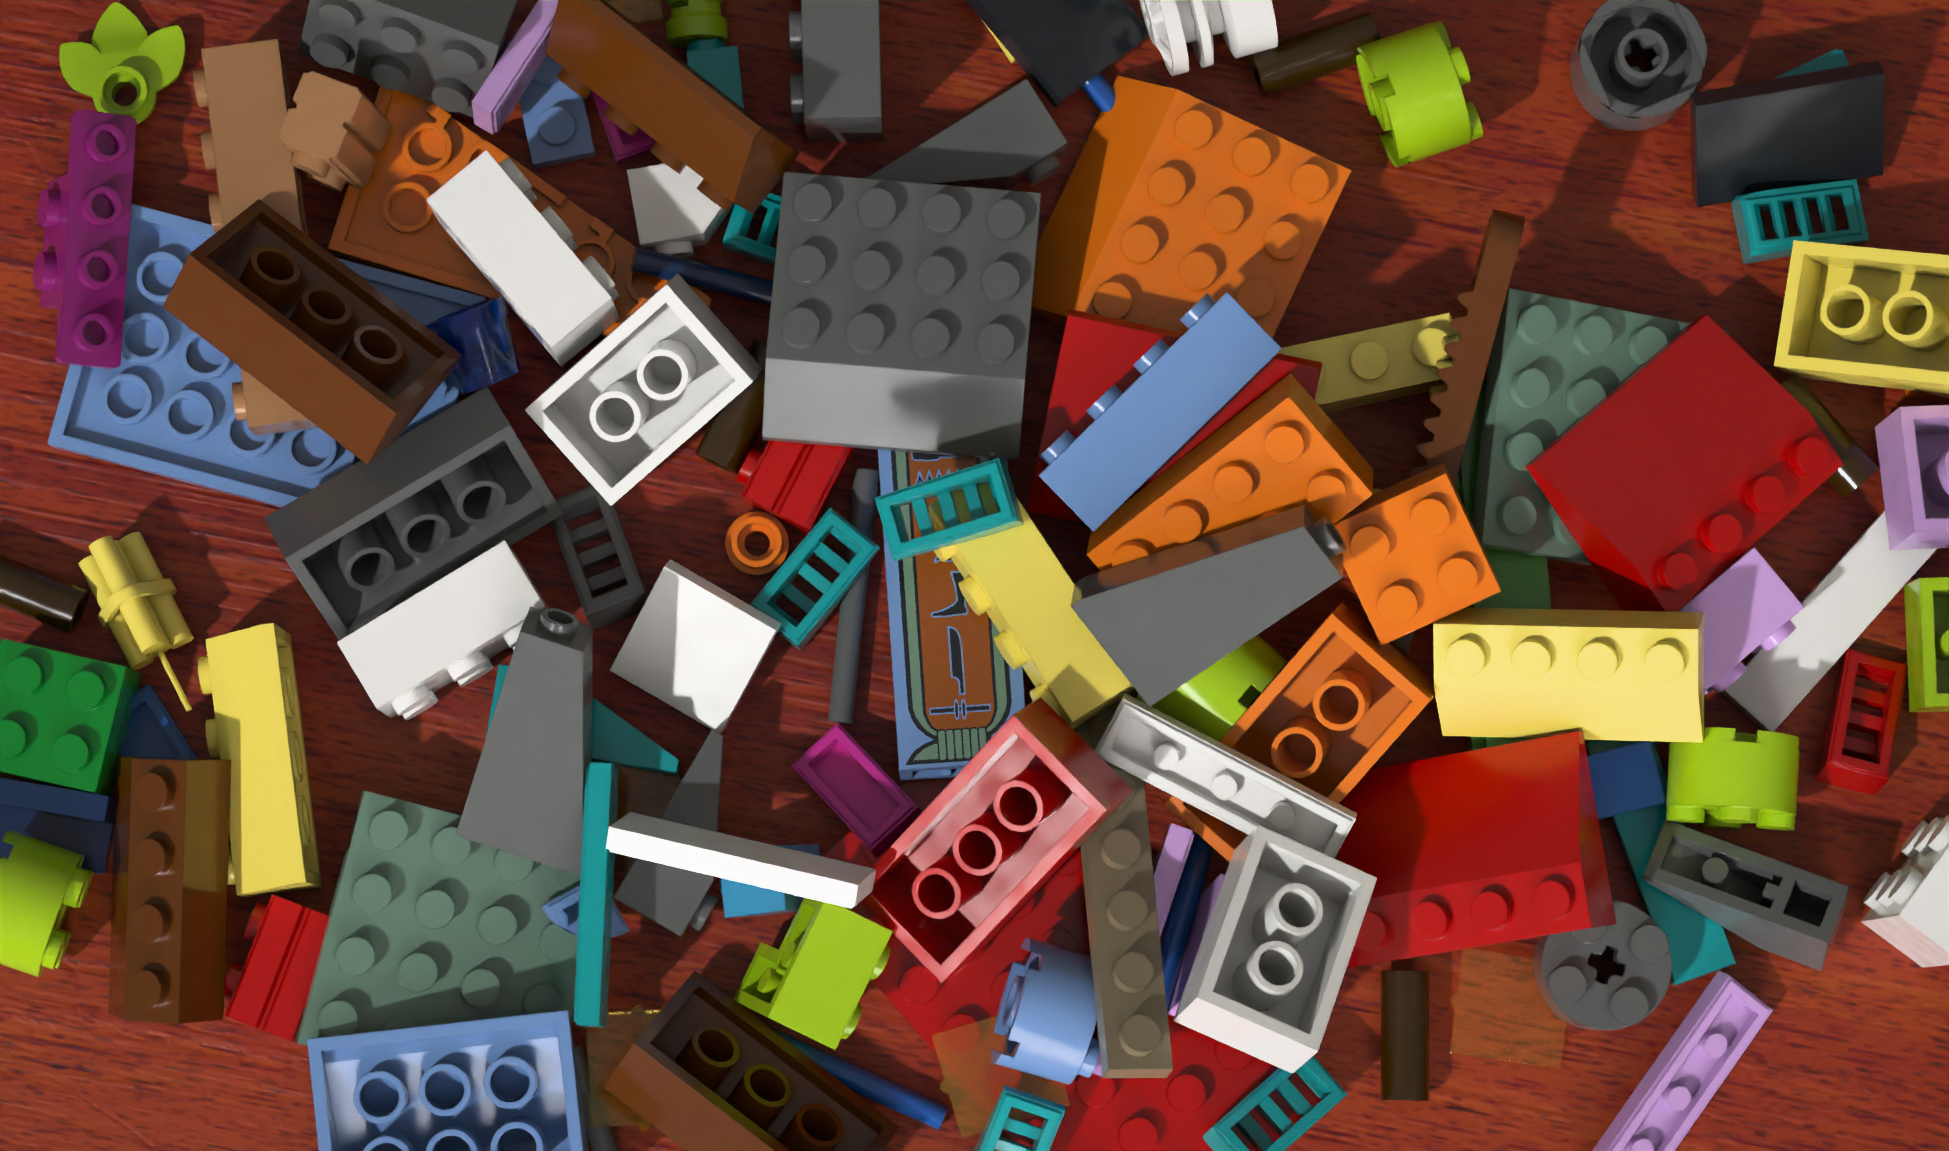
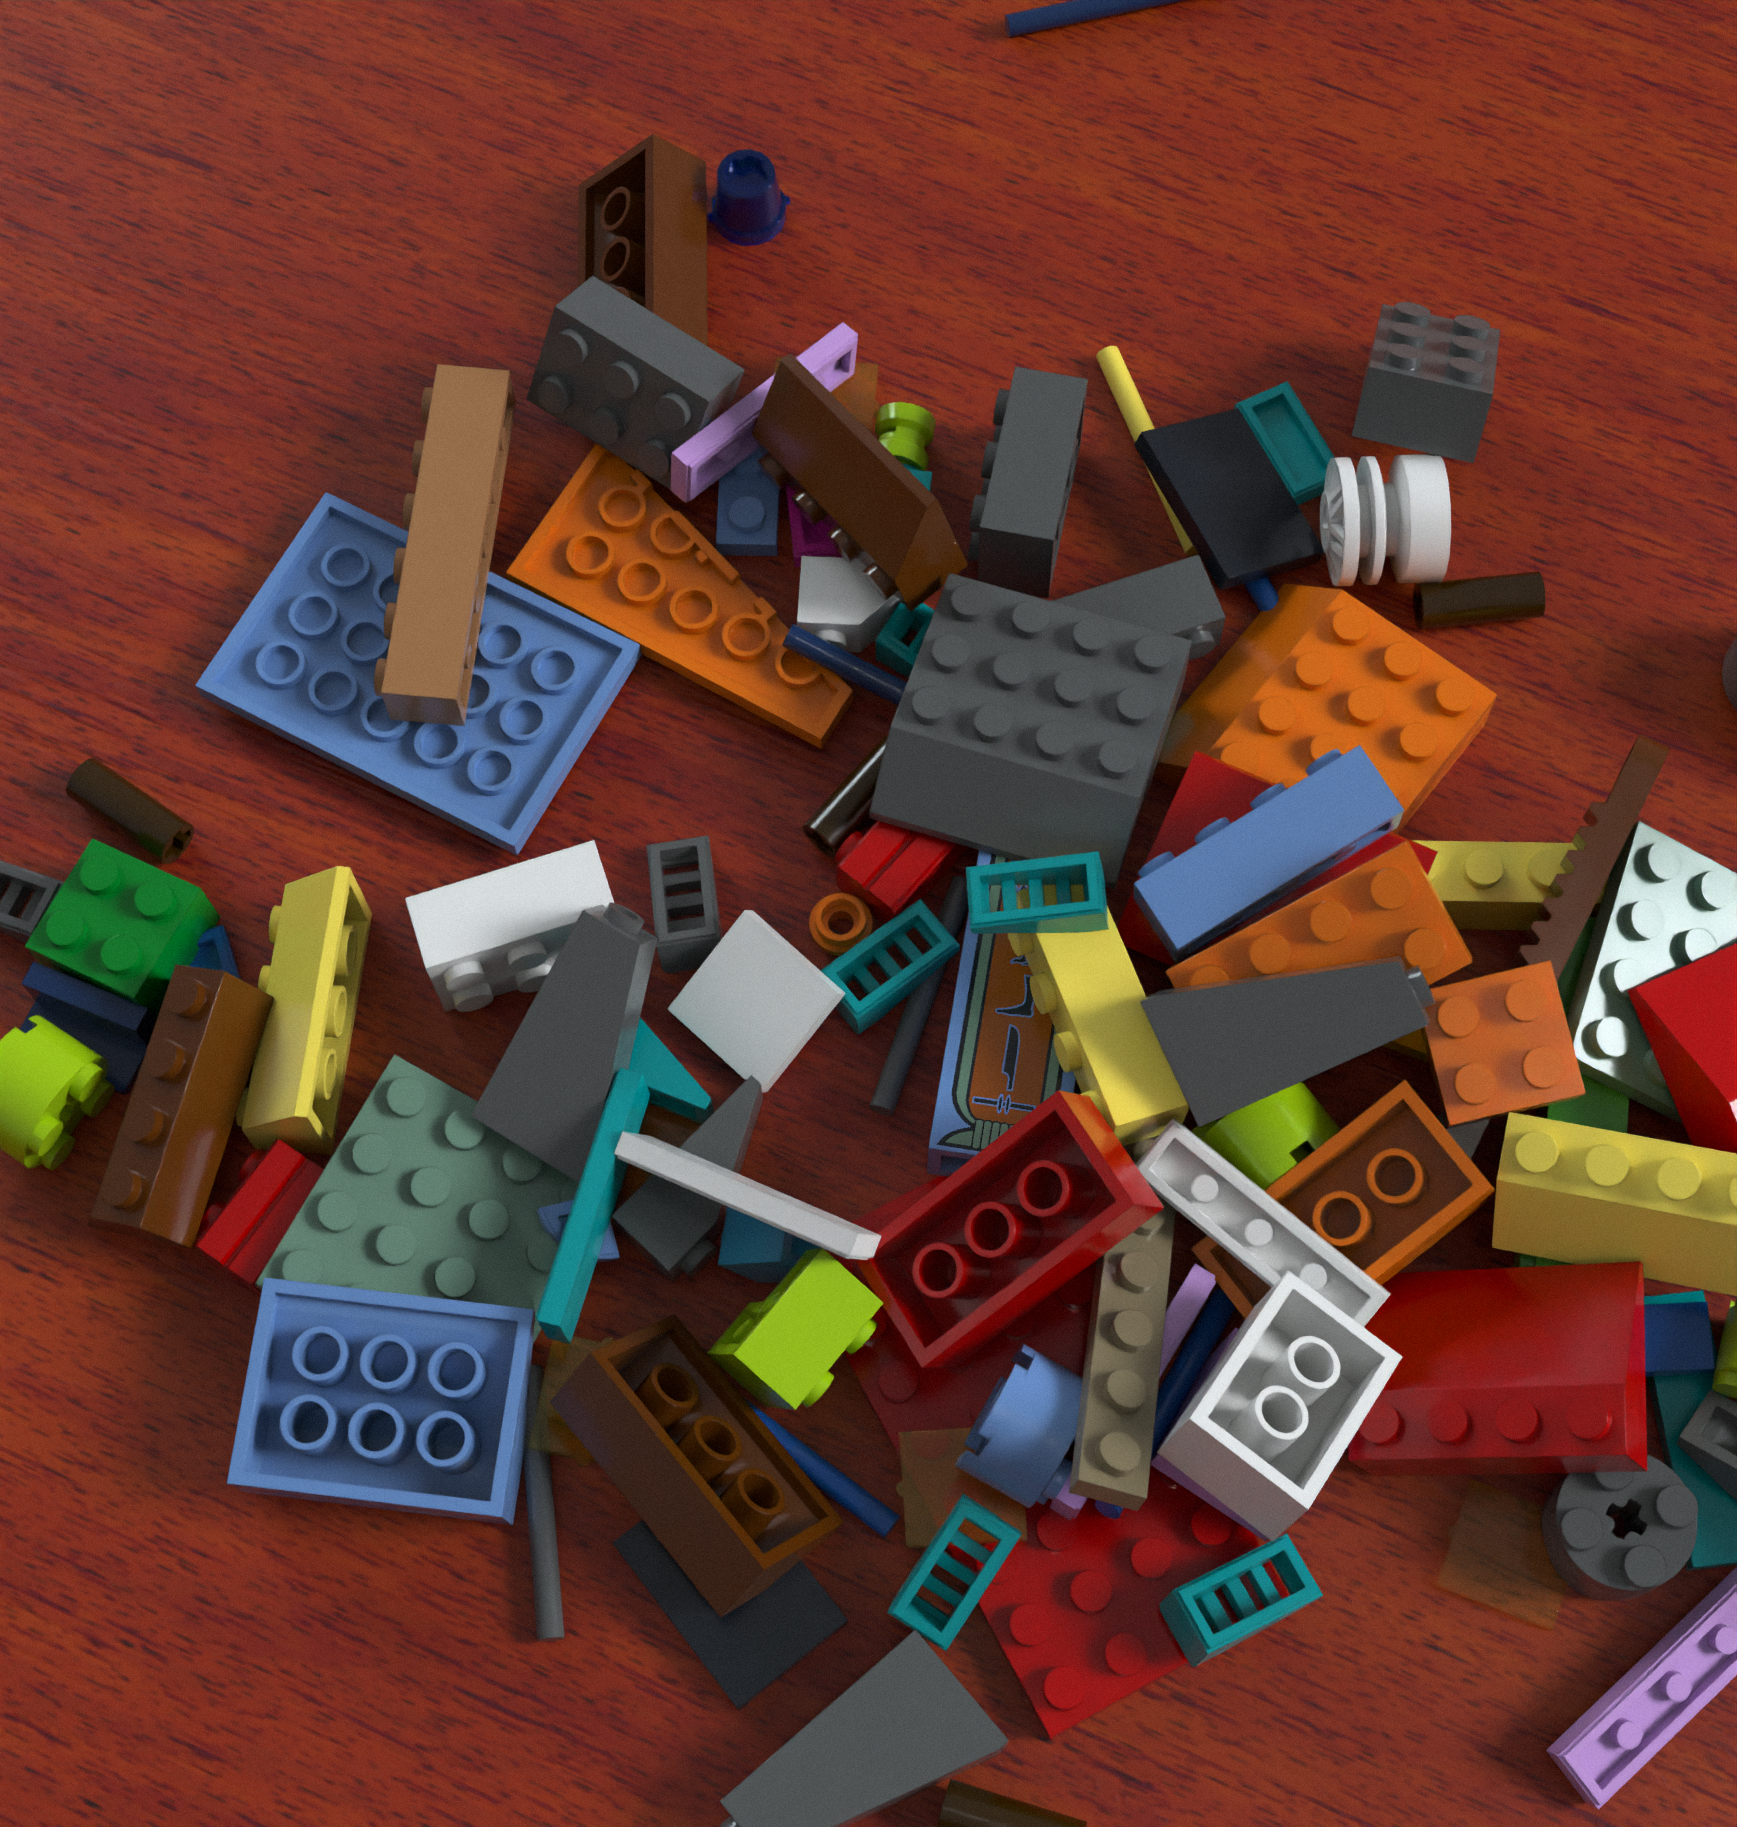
camera: 20 degrees right, 15 degrees down
(88, 240) = (289, 516): magenta bracket -> none
(122, 57) = (371, 384): lime plate -> none
(136, 602) = (233, 845): light yellow piece -> none
(310, 330) = (462, 613): reddish brown slope -> none
(333, 132) = (537, 456): medium nougat brick -> none
(413, 513) = (518, 805): dark grey slope -> none
(483, 340) = (619, 672): clear blue piece -> none
(526, 255) = (686, 599): white brick -> none
(644, 389) = (766, 746): white brick -> none
(857, 789) = (877, 1167): dark pink tile -> none
(1405, 1035) = (1393, 1553): dark brown piece -> none
(1417, 93) = (1574, 643): lime brick -> none

